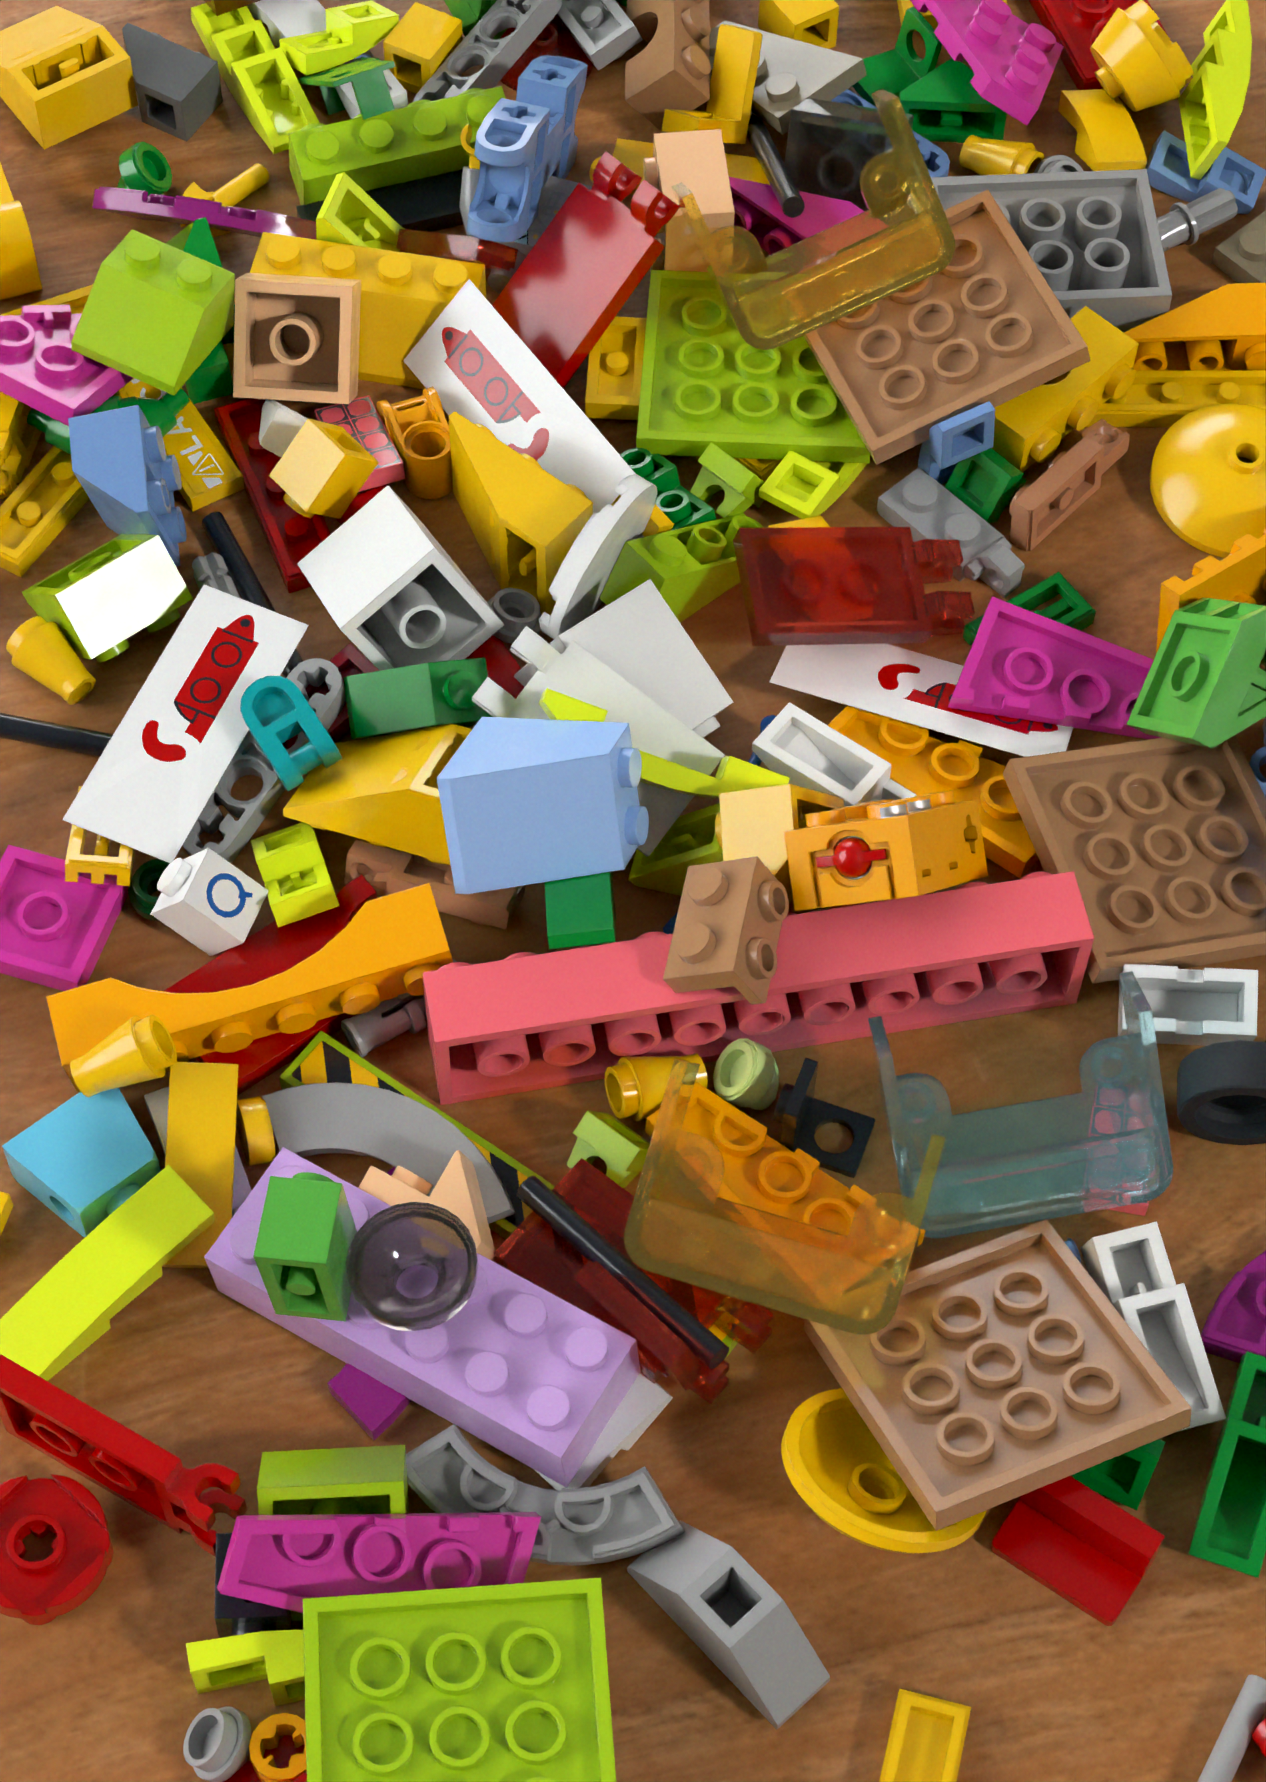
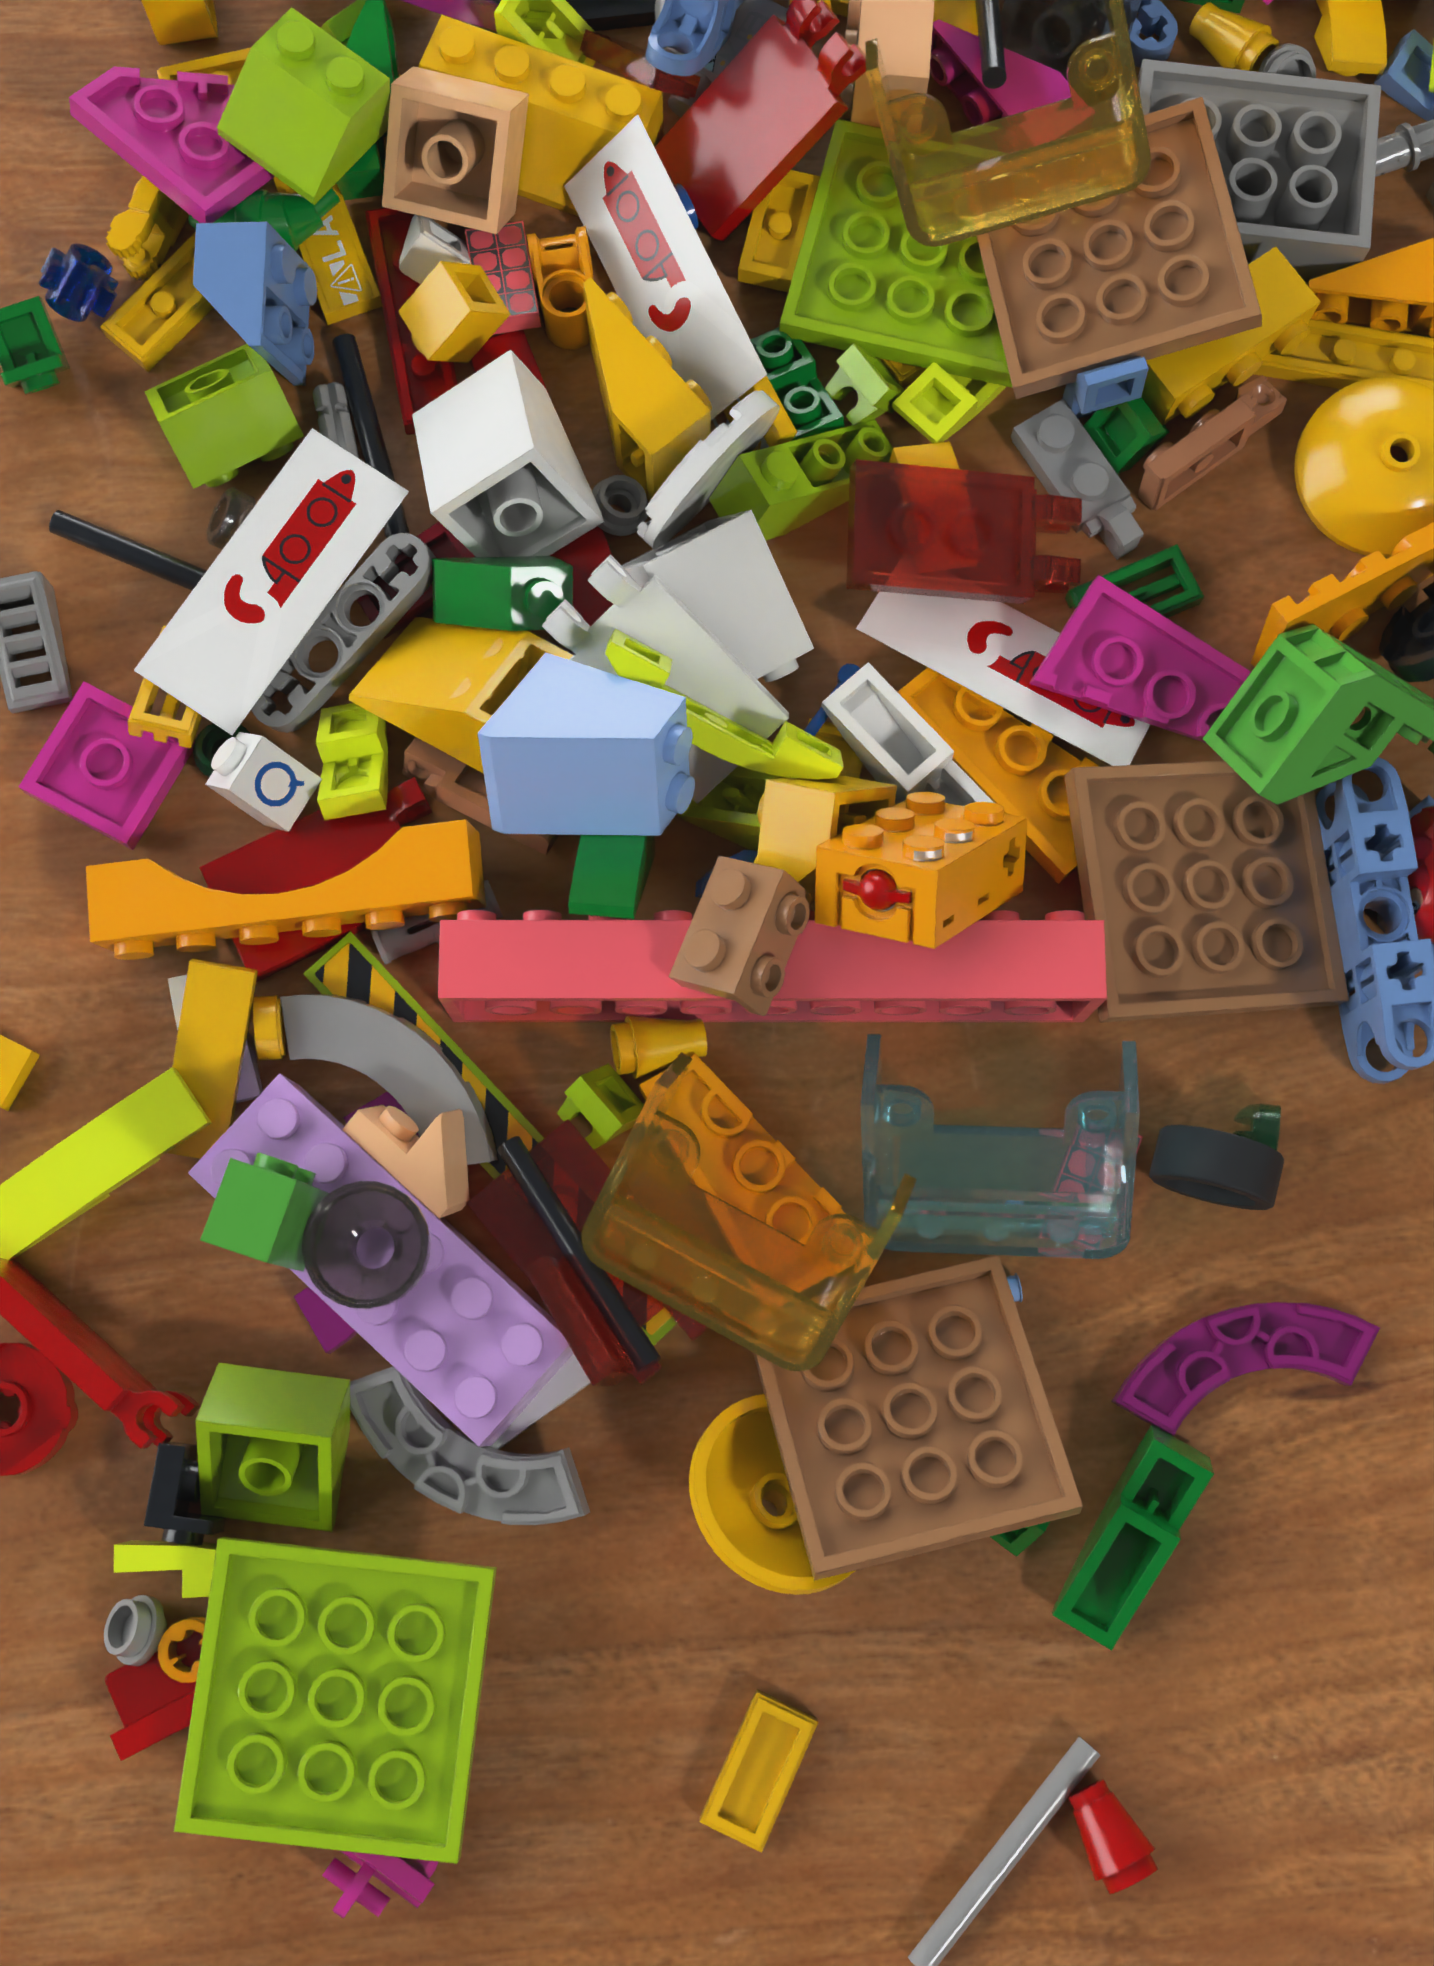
camera: 10 degrees right, 20 degrees up
(48, 657) = (156, 477): yellow cone -> none
(83, 1158) = (109, 1029): medium azure torso -> none
(128, 680) = (228, 516): none -> clear smoke tile
(128, 1056) = (148, 951): yellow cone -> none
(275, 713) = (353, 593): teal plate -> none
(330, 1555) = (301, 1501): dark pink wing -> none
(733, 1620) = (614, 1604): light grey slope -> none
(746, 1075) = (746, 1050): yellowish green tile -> none
(804, 1114) = (790, 1099): black bracket -> none
(1078, 1546) = (956, 1595): red panel -> none
(1140, 1284) = (1076, 1376): white slope -> none
(1197, 1004) = (1193, 1063): white brick -> none

